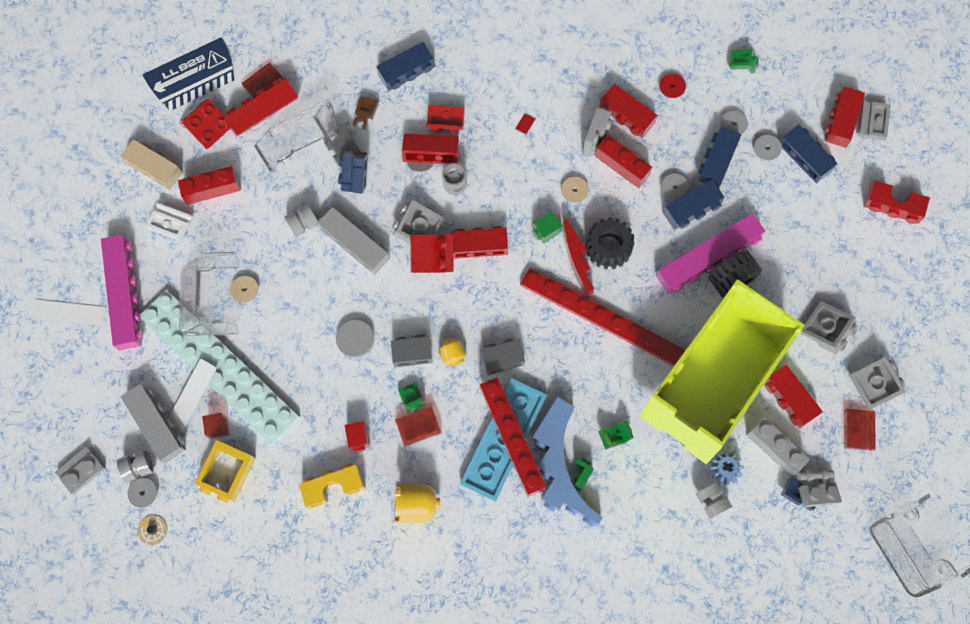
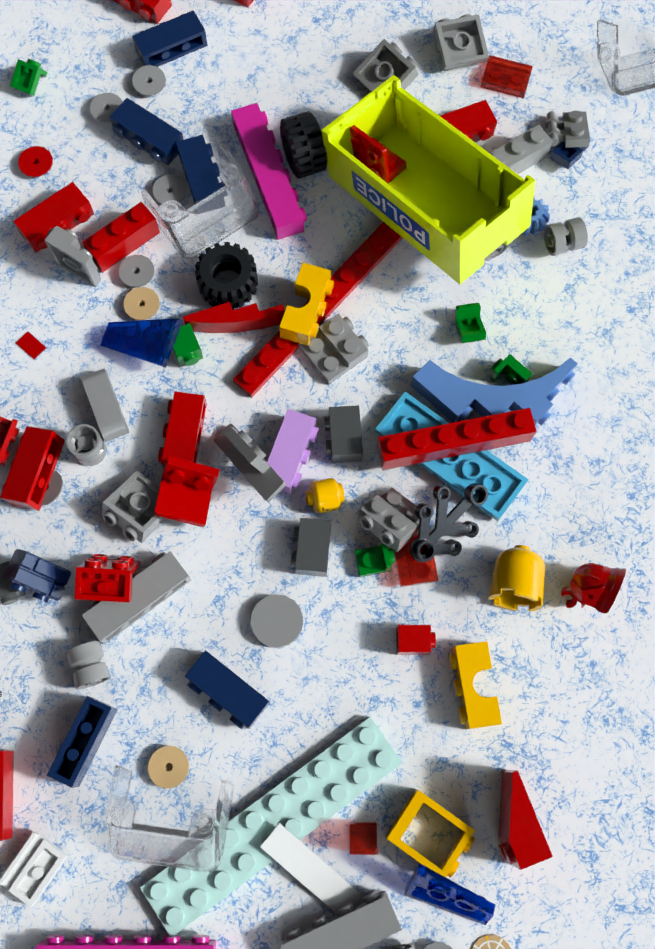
camera: 85 degrees left, 0 degrees up
(185, 490) = (445, 894): none -> clear blue wing
(232, 532) = (519, 828): none -> red slope
(250, 229) = (82, 742): none -> dark blue brick
(300, 314) = (226, 690): none -> dark blue brick
(360, 215) = (105, 578): none -> red bracket
(419, 561) = (594, 586): none -> red helmet
(442, 403) = (390, 519): none -> light grey plate
(444, 442) = (444, 523): none -> black plant
(463, 291) = (250, 461): none -> light grey bracket
(480, 320) = (292, 447): none -> lavender brick
(488, 184) = (105, 405): none -> light grey beam
(542, 197) = (143, 339): none -> clear blue wing
(571, 336) = (335, 348): none -> light grey plate
(600, 179) = (136, 270): none -> light grey piece
(613, 310) = (301, 323): none -> yellow arch
(657, 223) = (213, 216): none -> clear windscreen
(740, 333) = (376, 155): none -> red bracket

